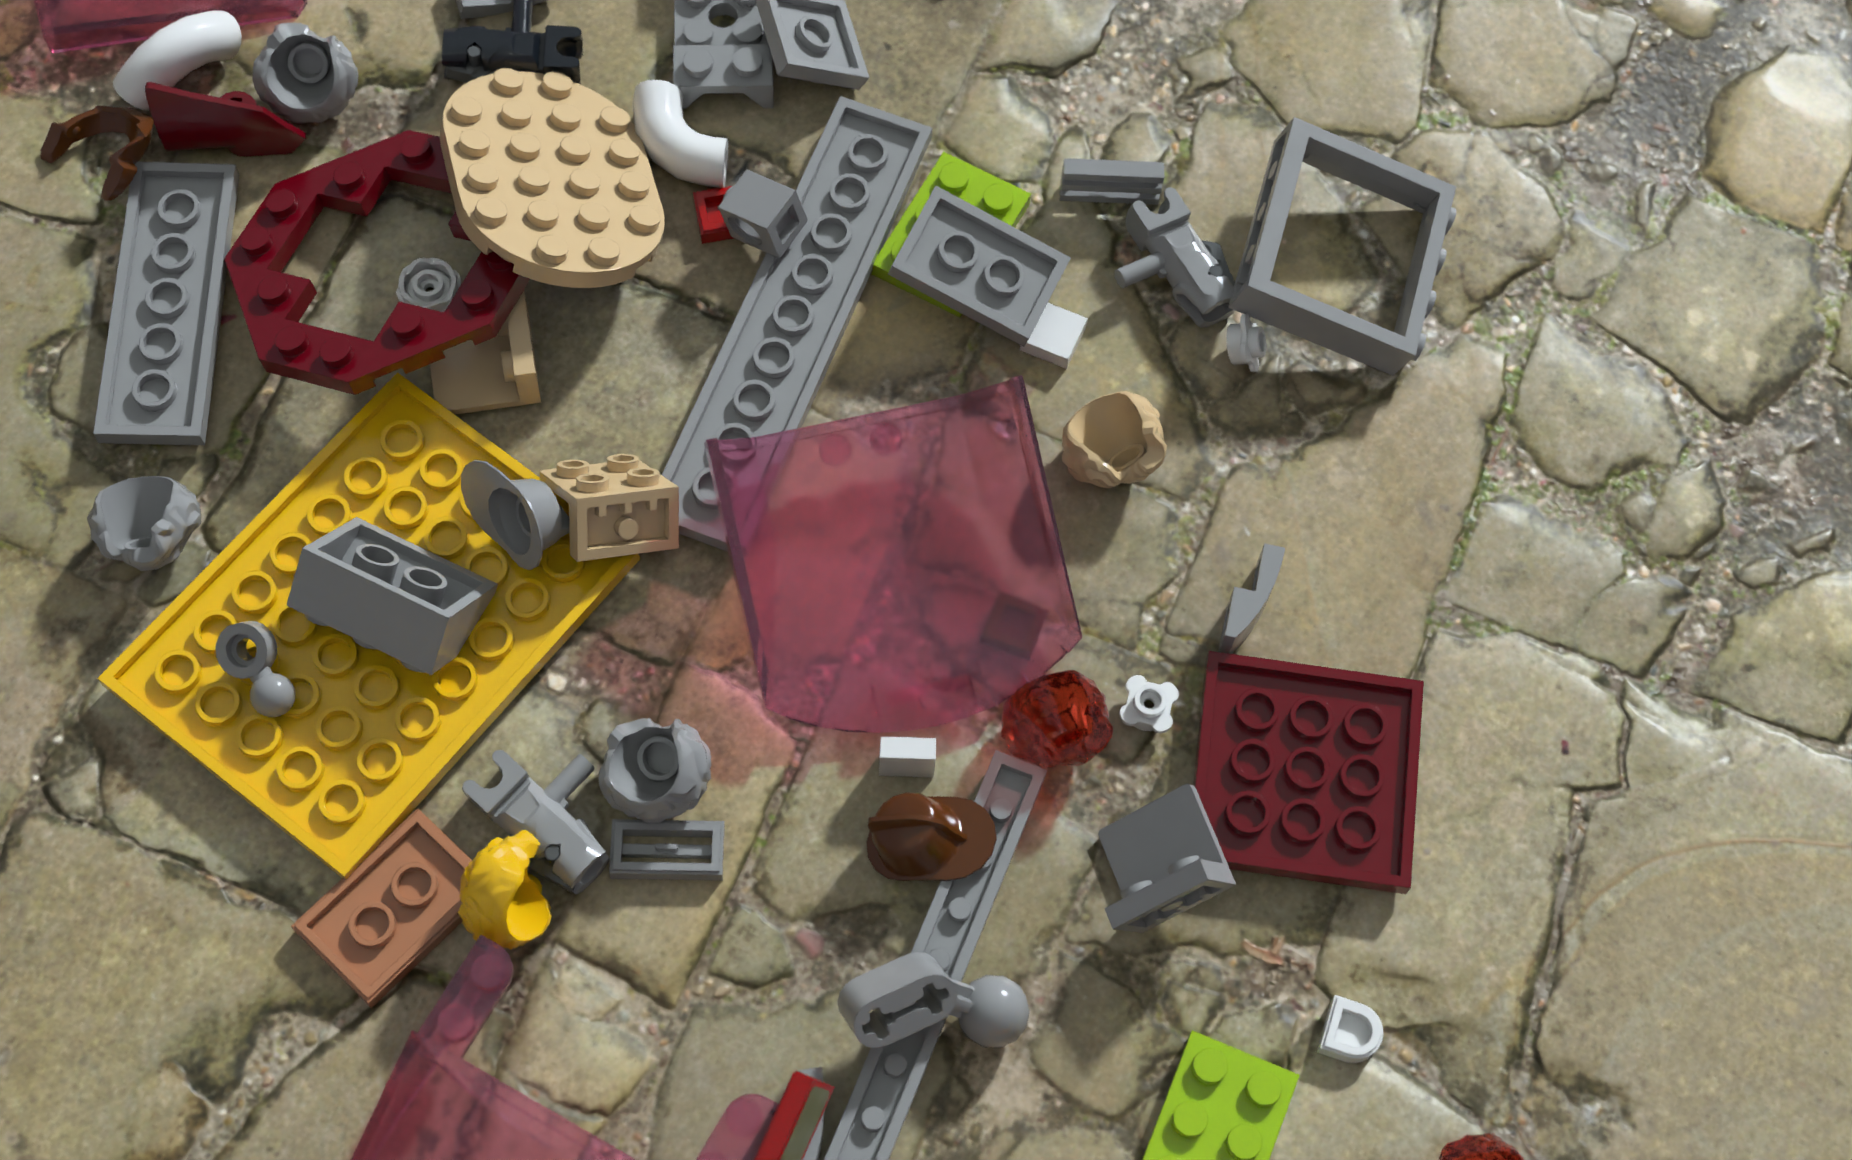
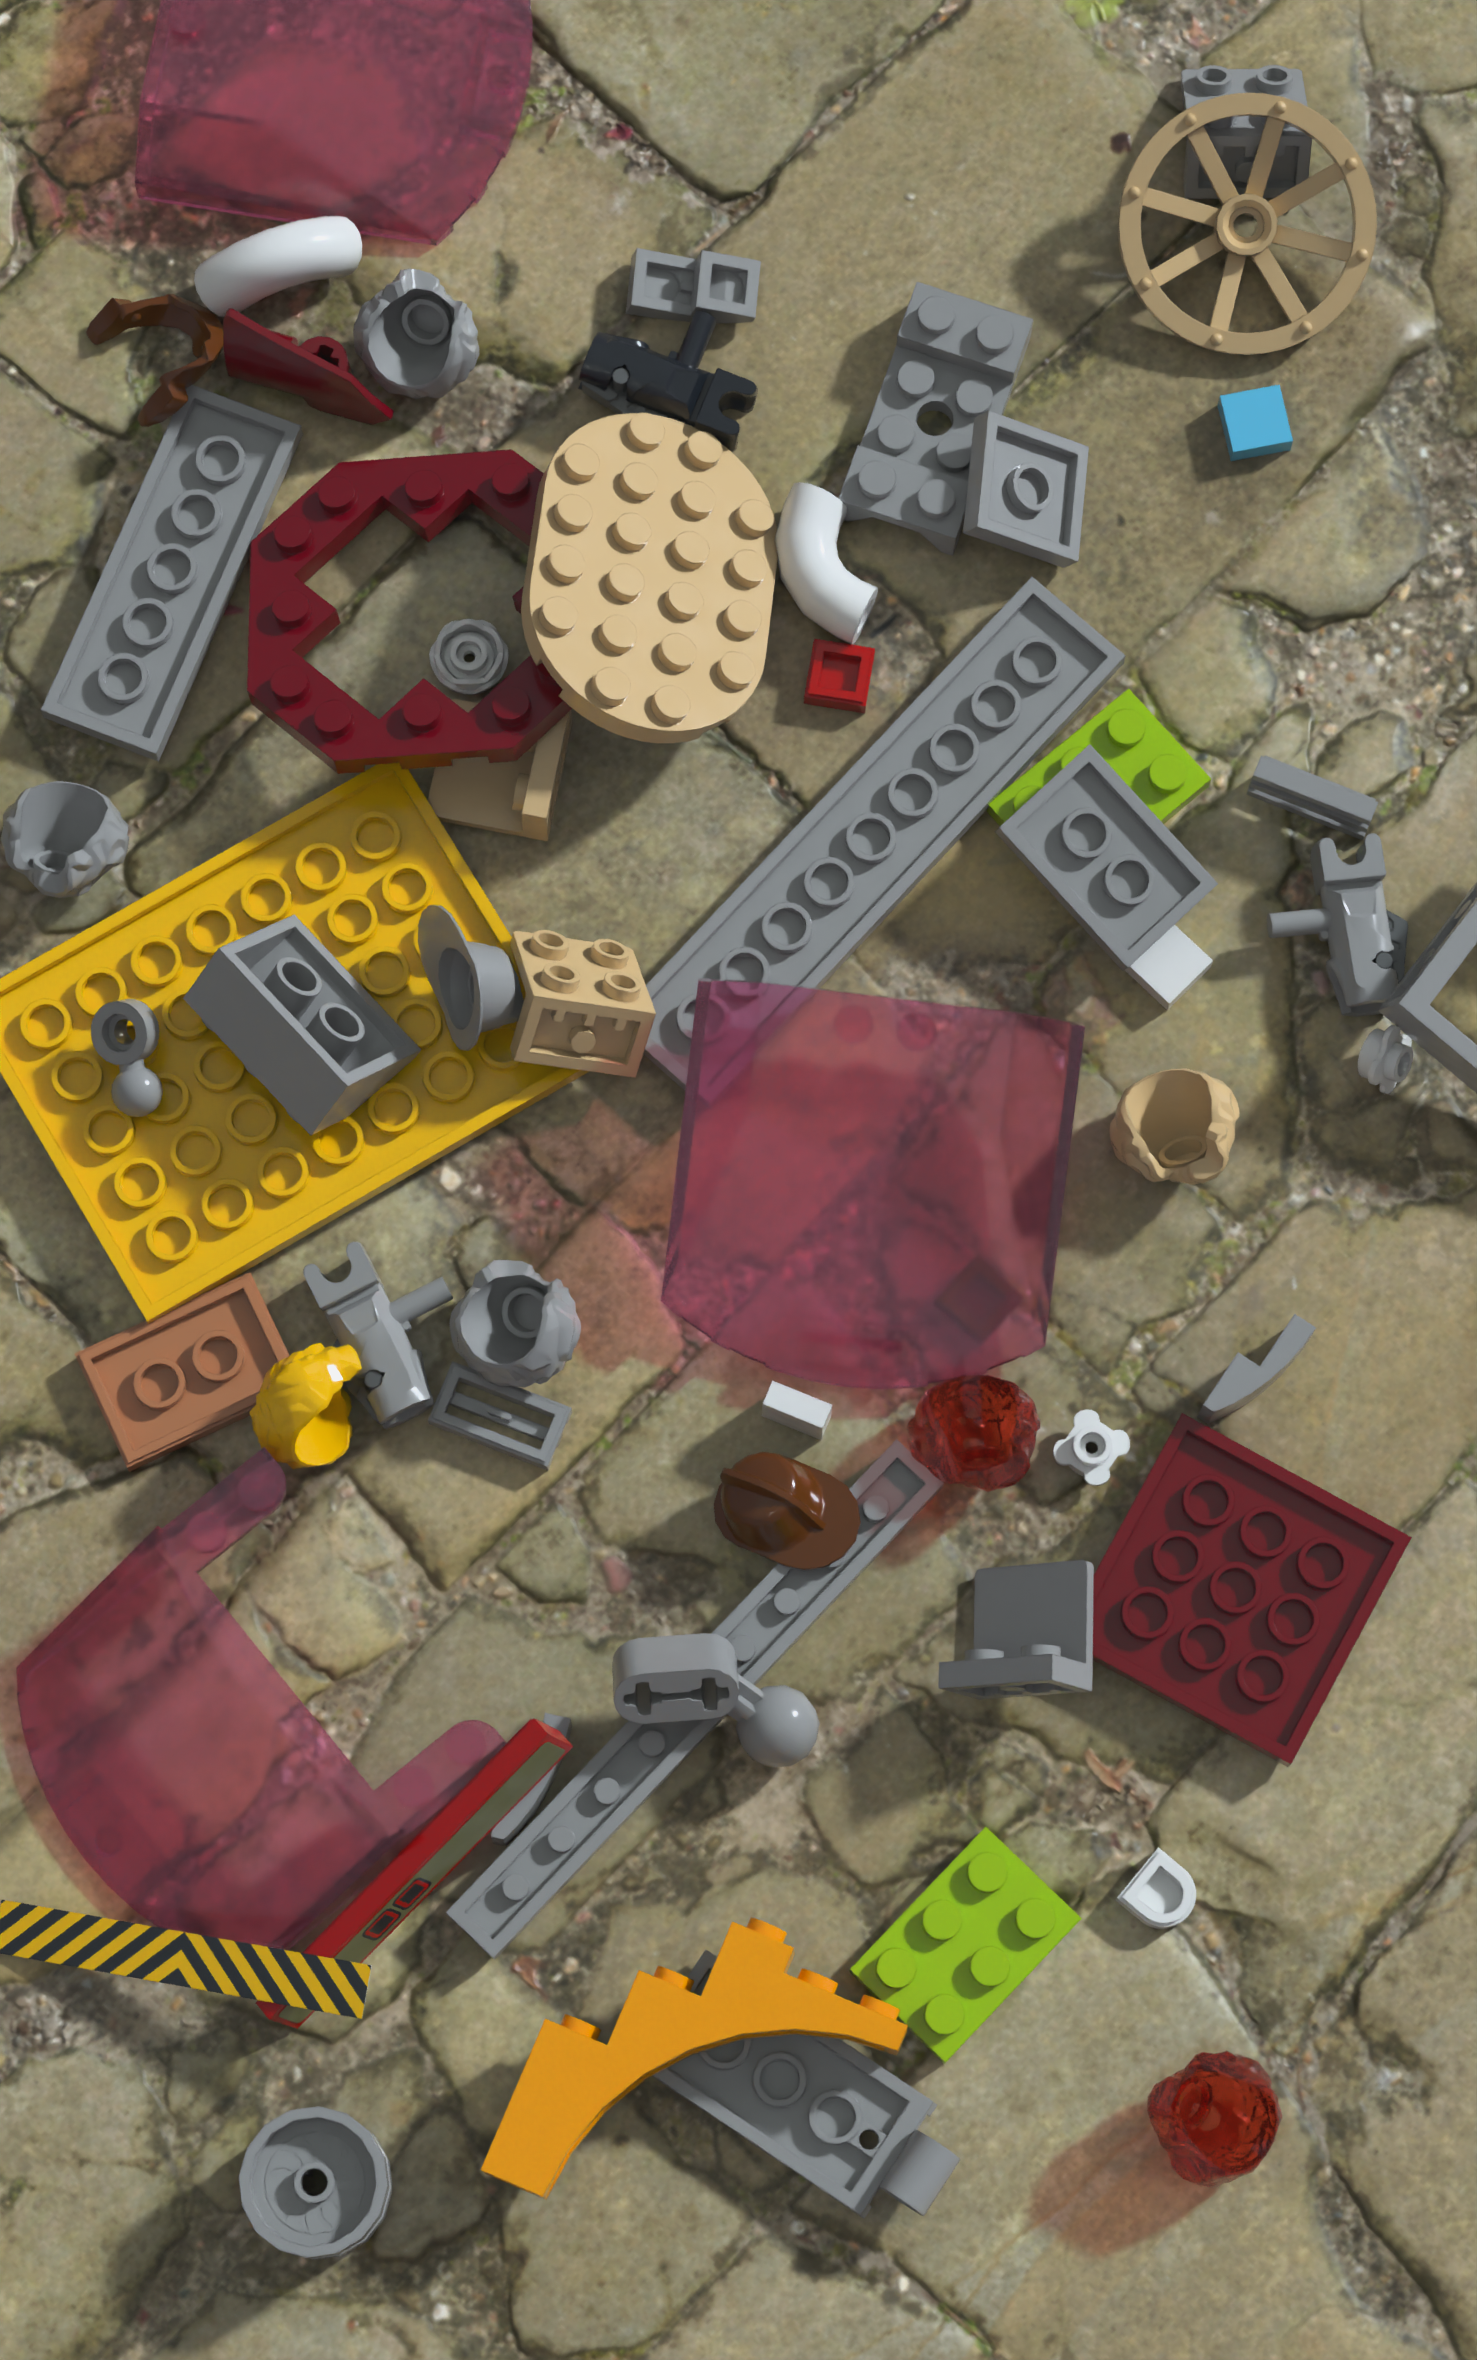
camera: 25 degrees right, 10 degrees up
(763, 213) = (878, 704): light grey brick -> none

